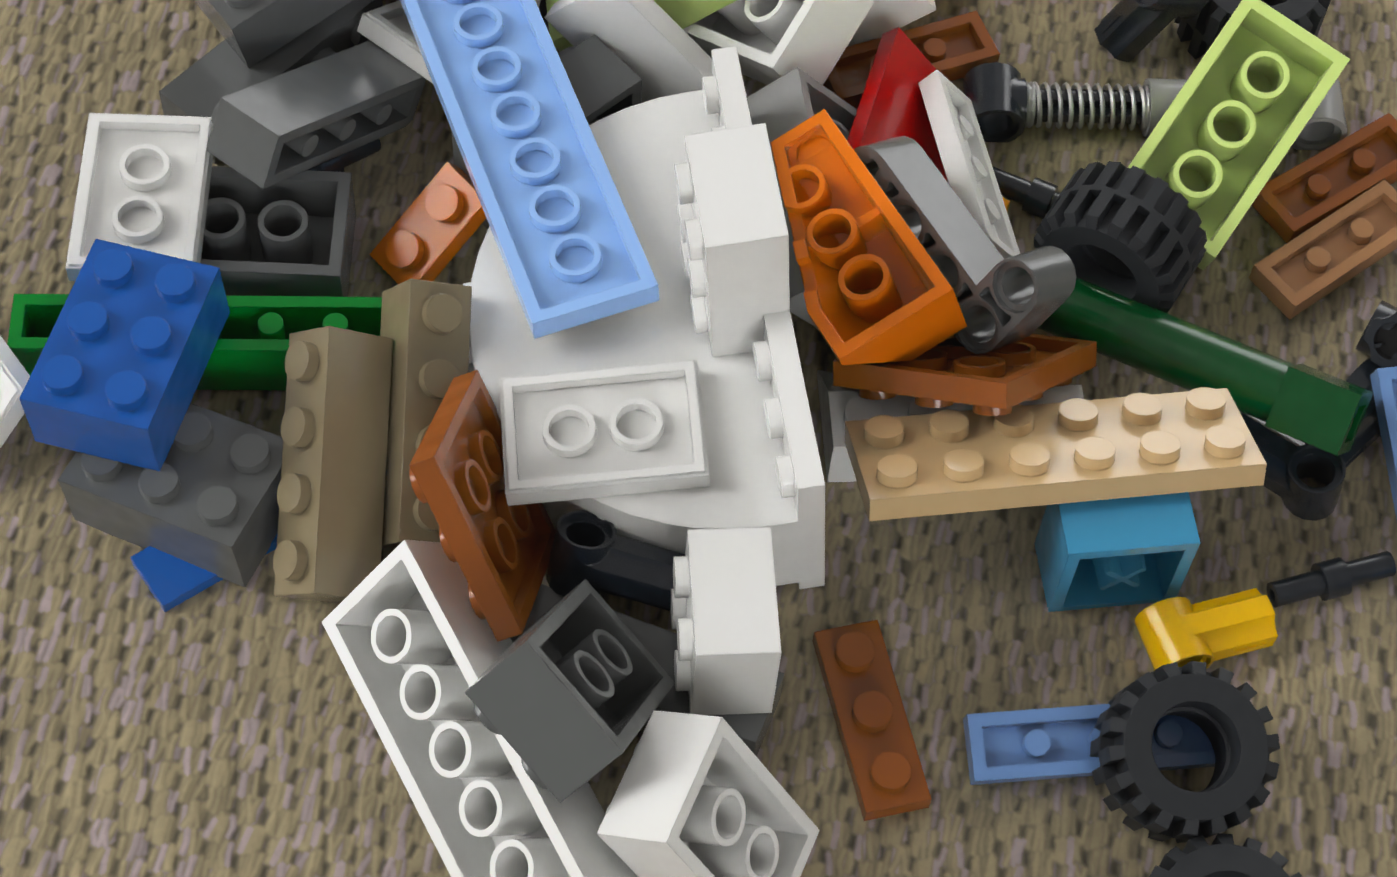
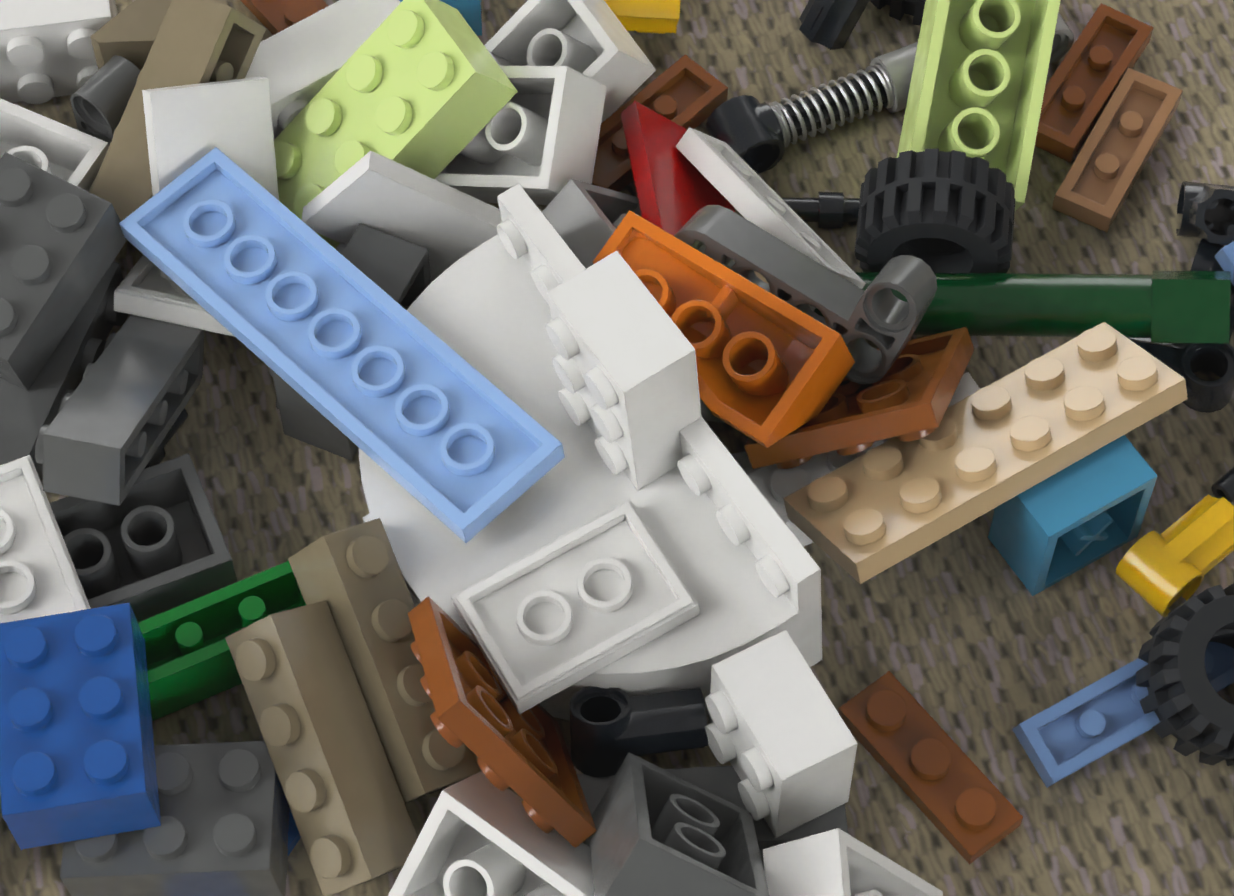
camera: 20 degrees left, 0 degrees up
(431, 228) = (287, 476): orange plate -> none

